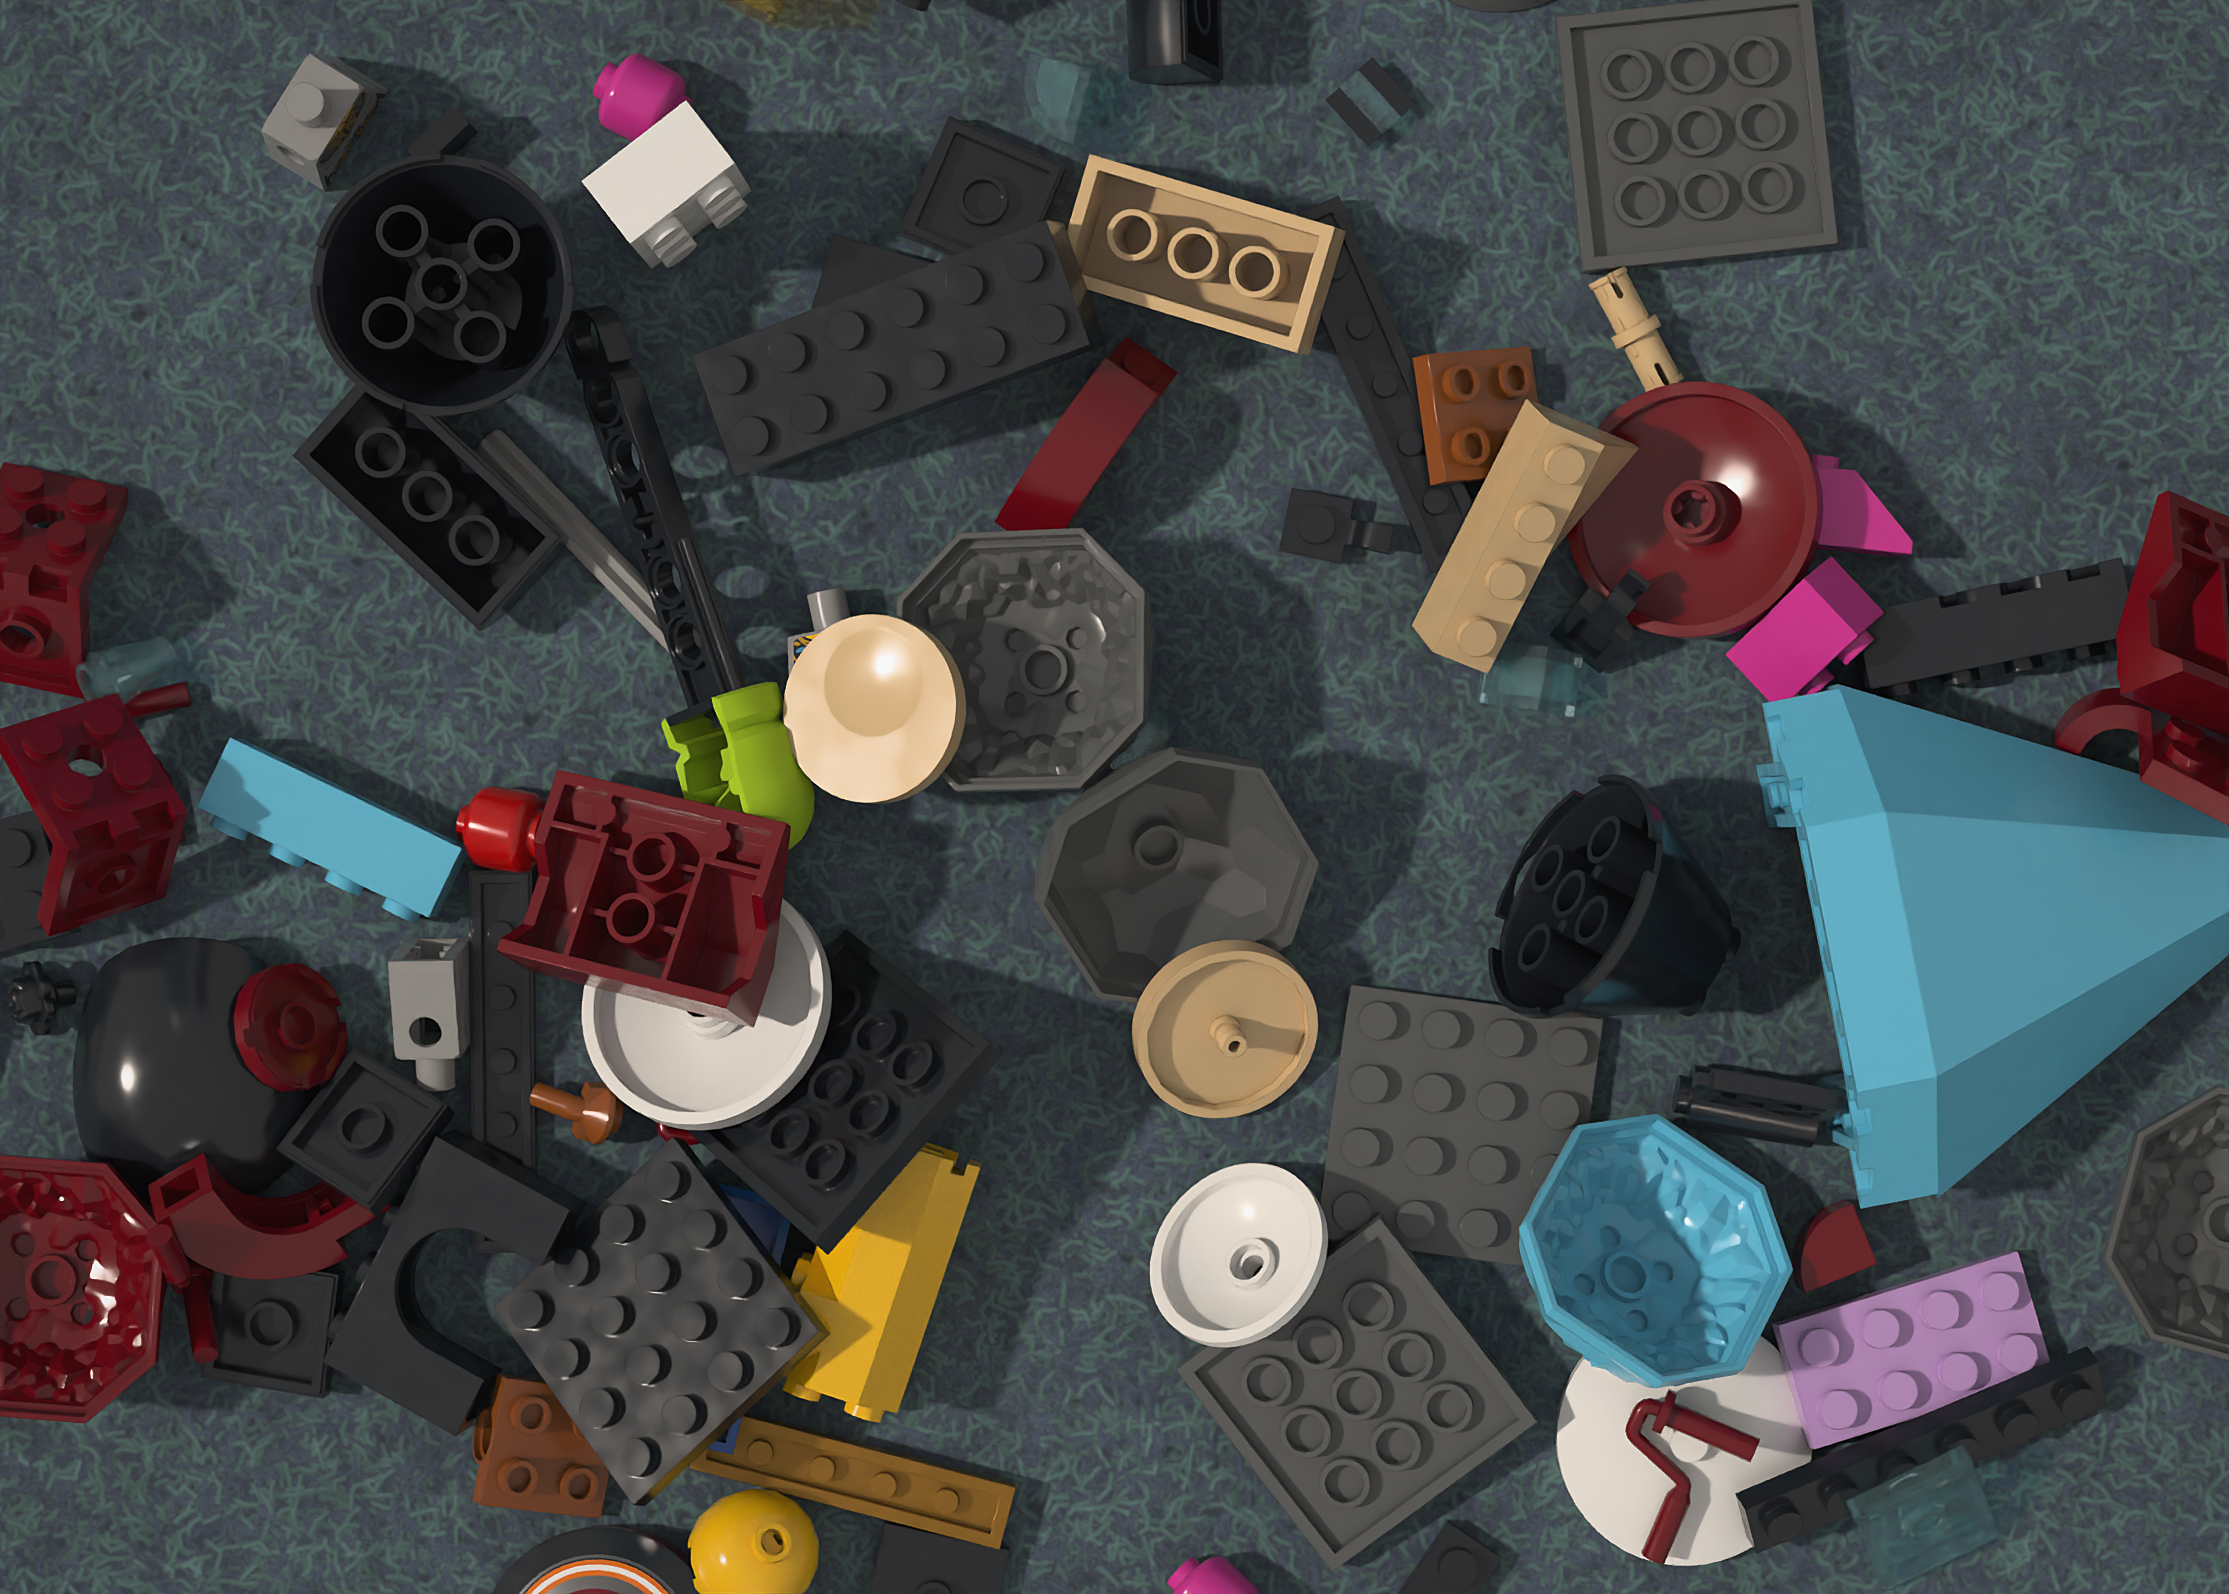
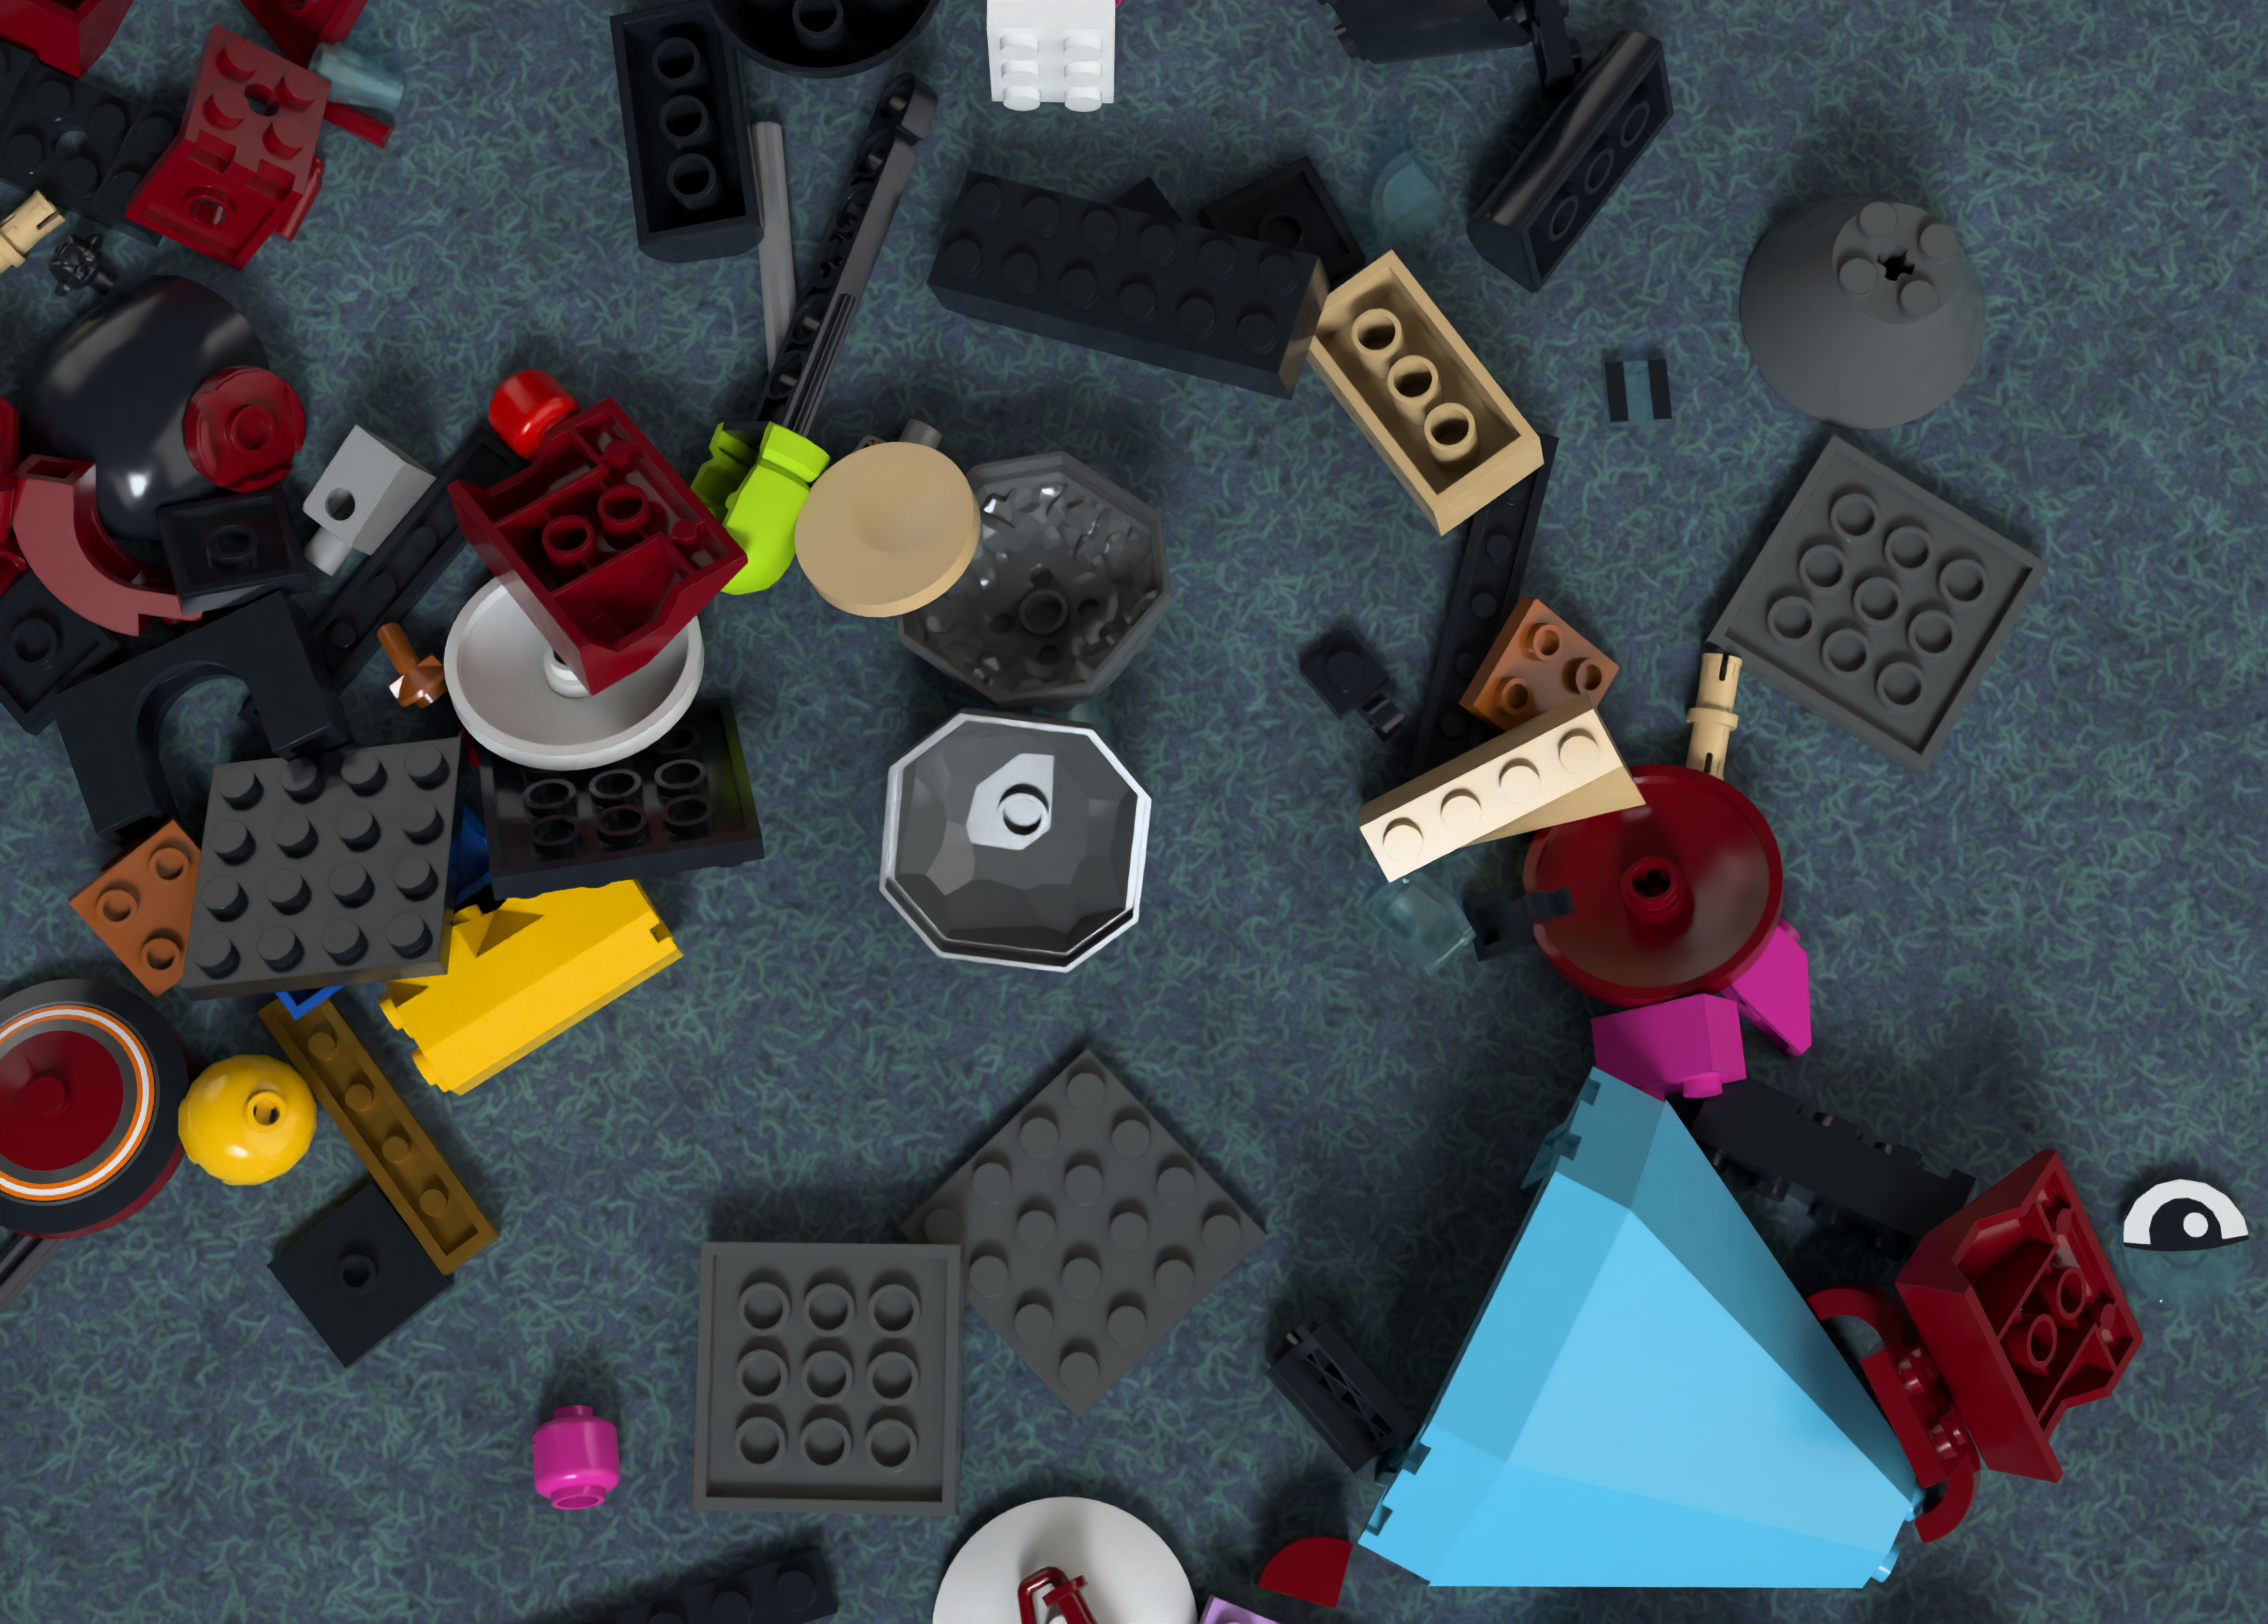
camera: 30 degrees right, 10 degrees down
(332, 828) = (406, 312): medium azure brick -> none
(1087, 440) = (1221, 462): dark red arch -> none
(1220, 1238) = (824, 1186): white dish -> none
(1224, 1029) = (959, 999): tan piece -> none
(1609, 913) = (1341, 1149): black cone -> none
(1653, 1253) = (1157, 1447): medium azure rock -> none

